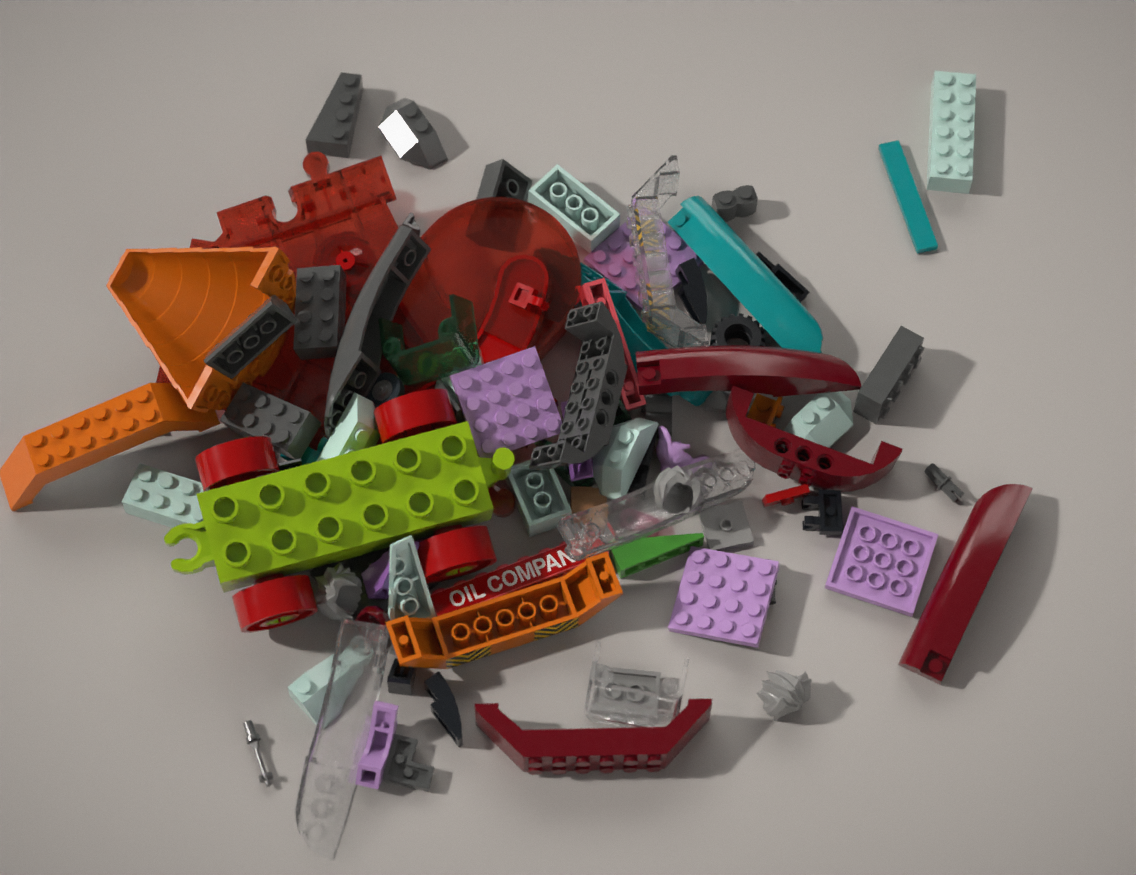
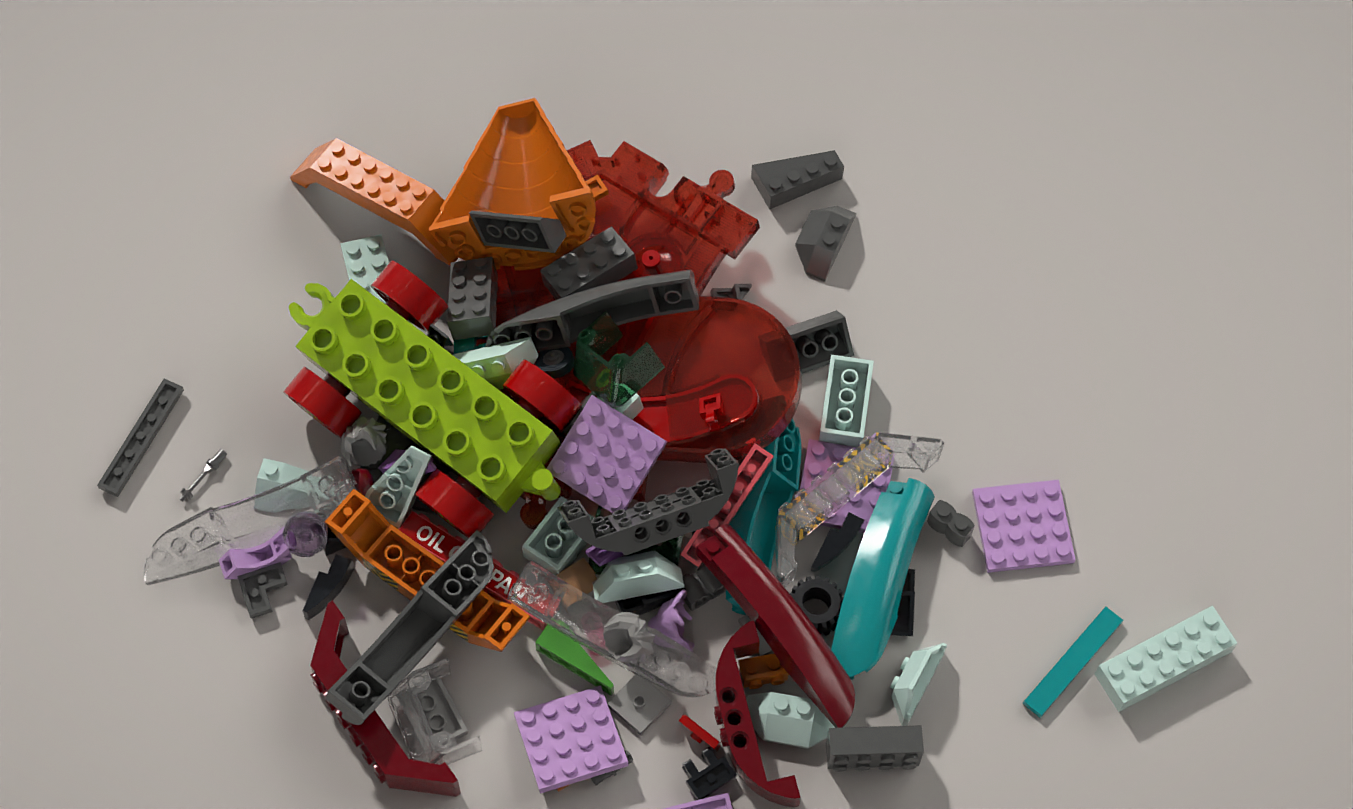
camera: 55 degrees right, 0 degrees up
(180, 785) = (140, 437): none -> dark grey plate
(397, 687) = (305, 534): none -> clear purple cylinder
(556, 652) = (414, 631): none -> dark grey slope
(770, 157) = (1023, 526): none -> lavender plate
(850, 315) = (914, 680): none -> light aqua wedge

